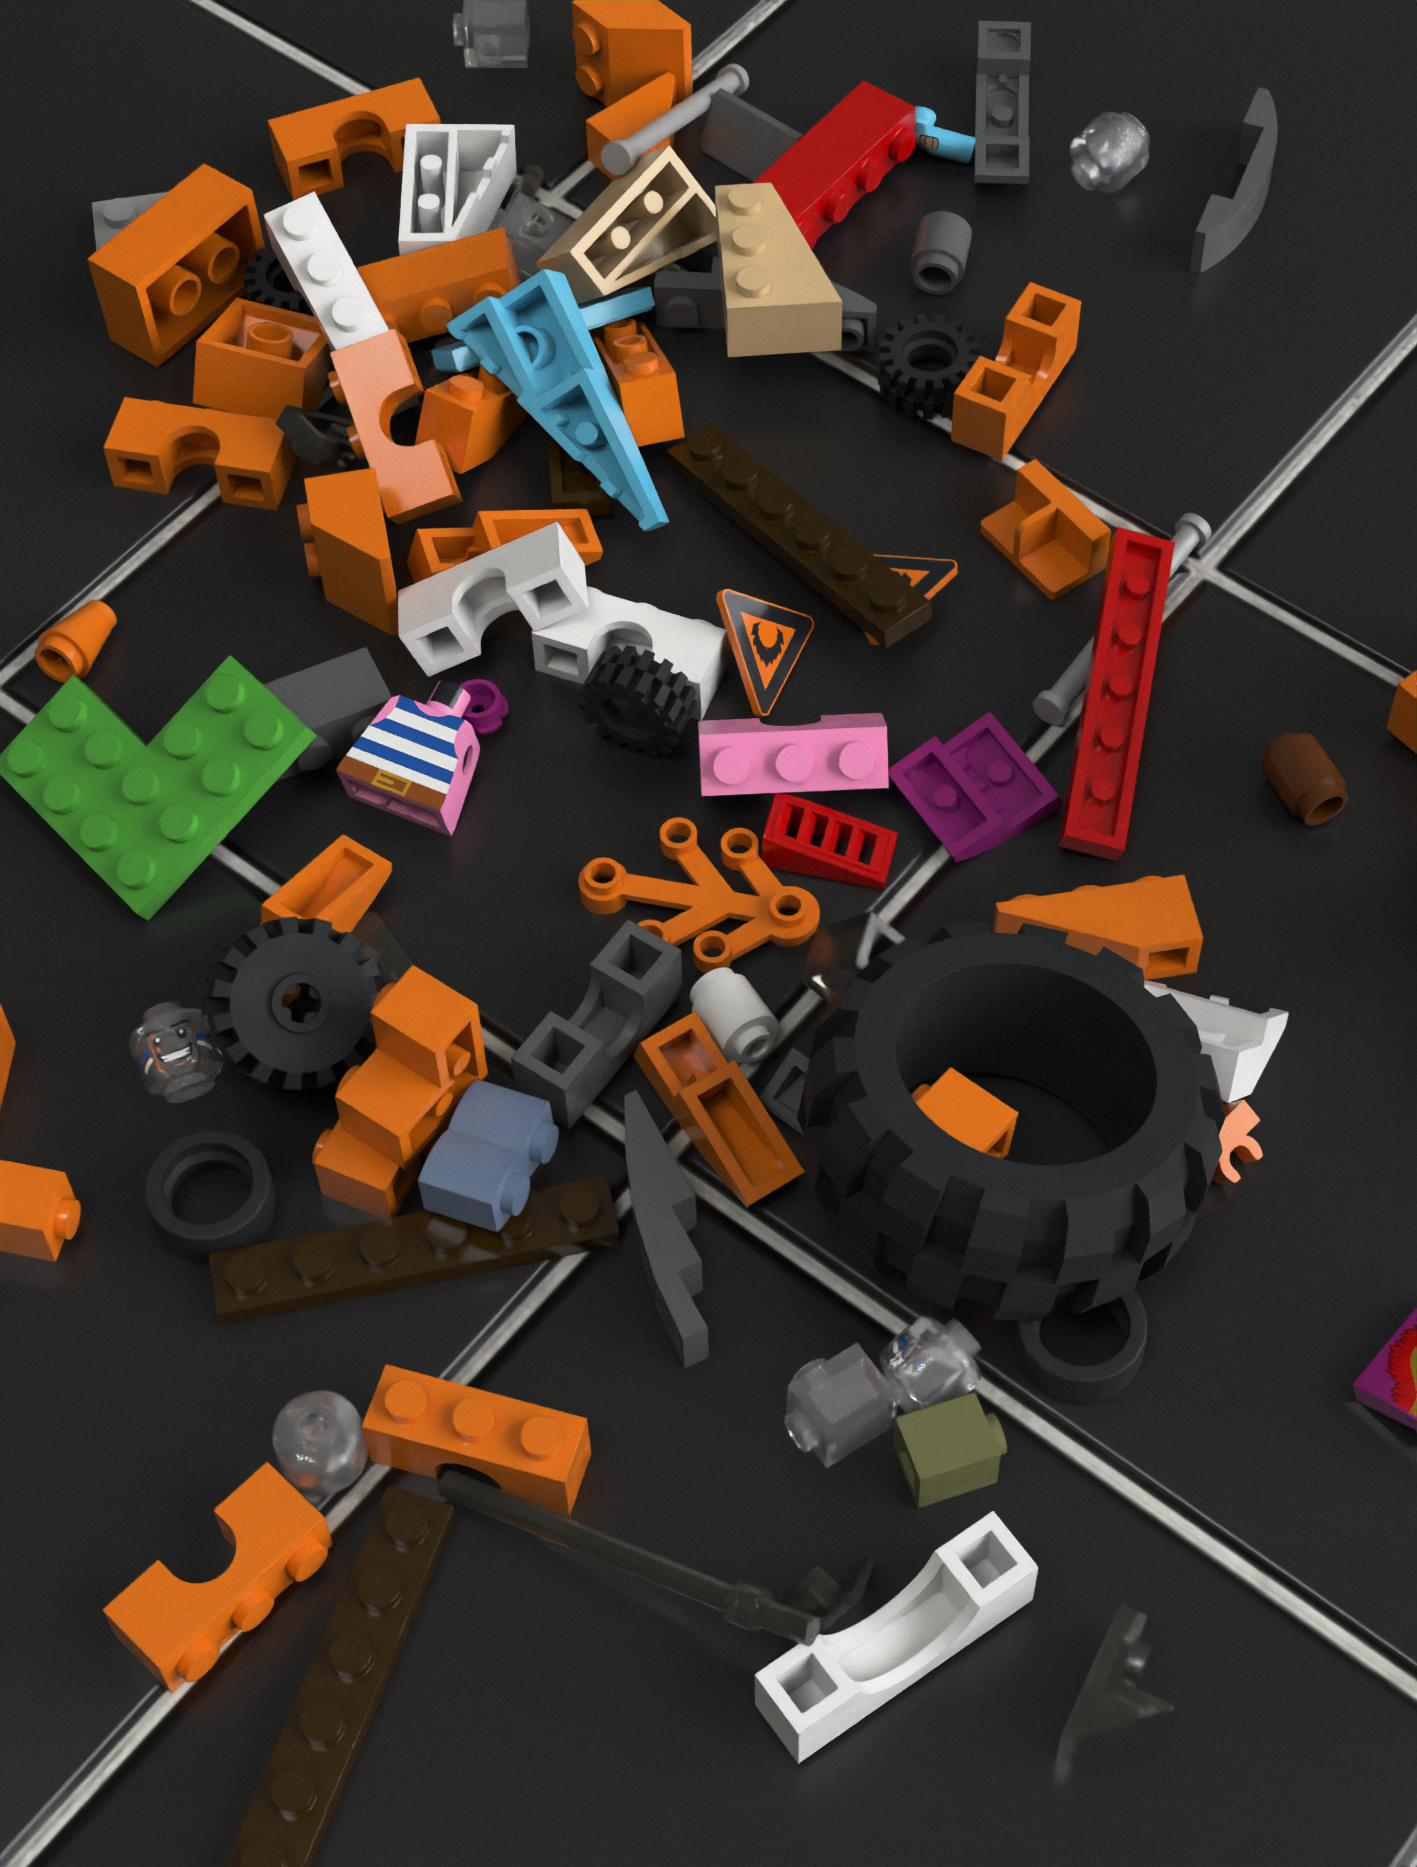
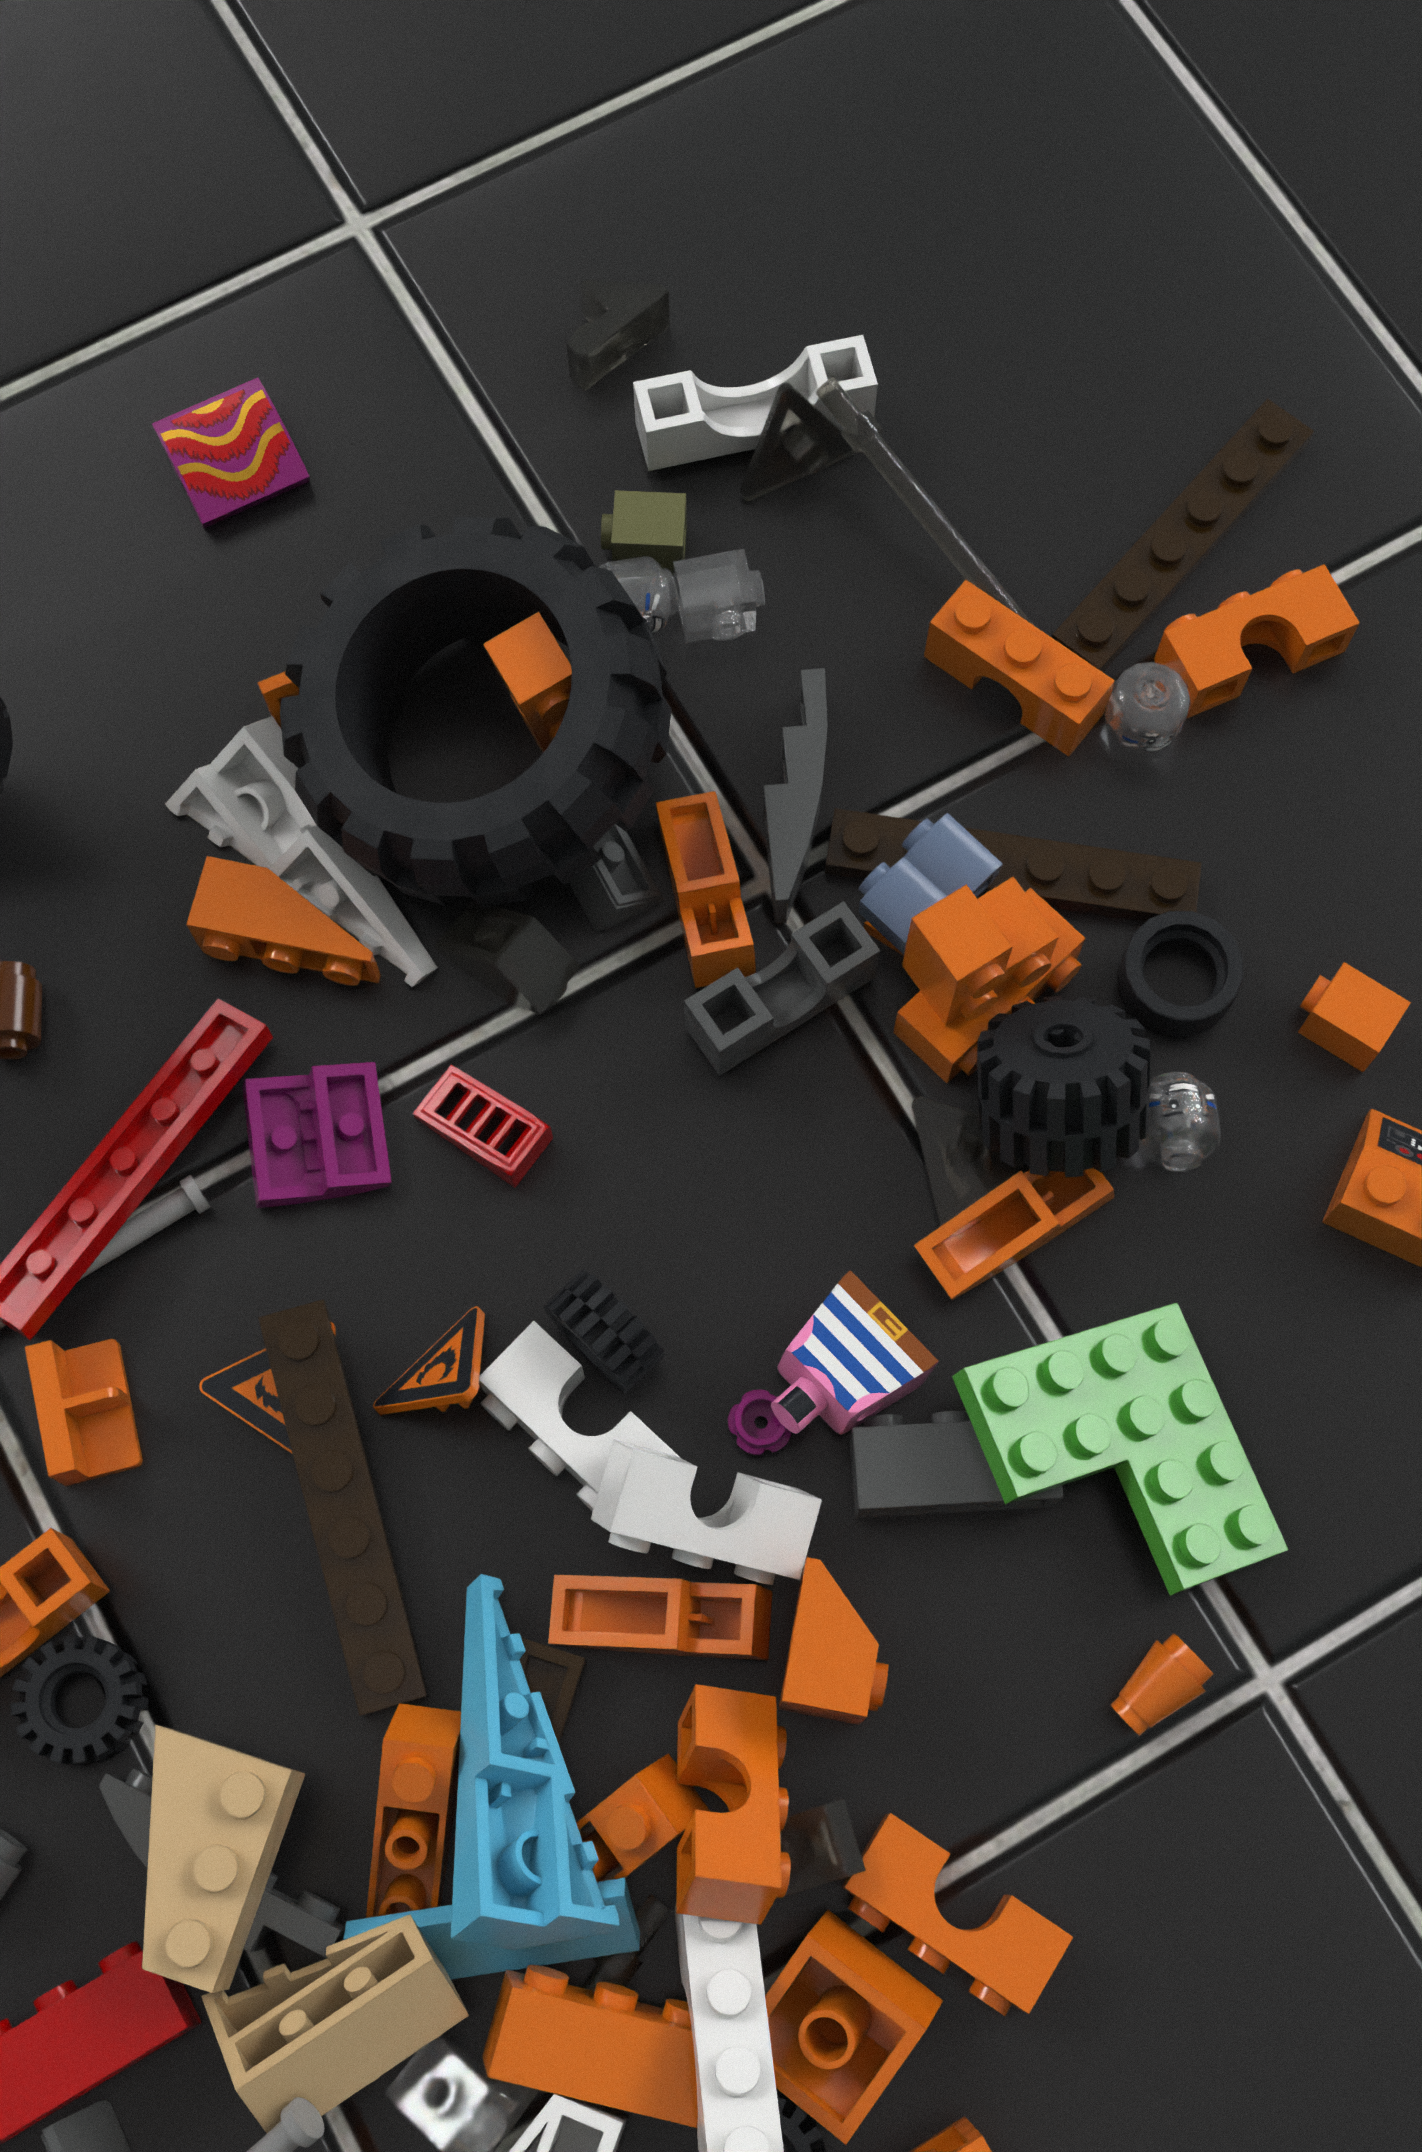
camera: 160 degrees left, 15 degrees up
(709, 899) = (623, 1103): orange plant -> none
(734, 1015) = (652, 969): white brick -> none
(819, 756) = (528, 1217): bright pink arch -> none

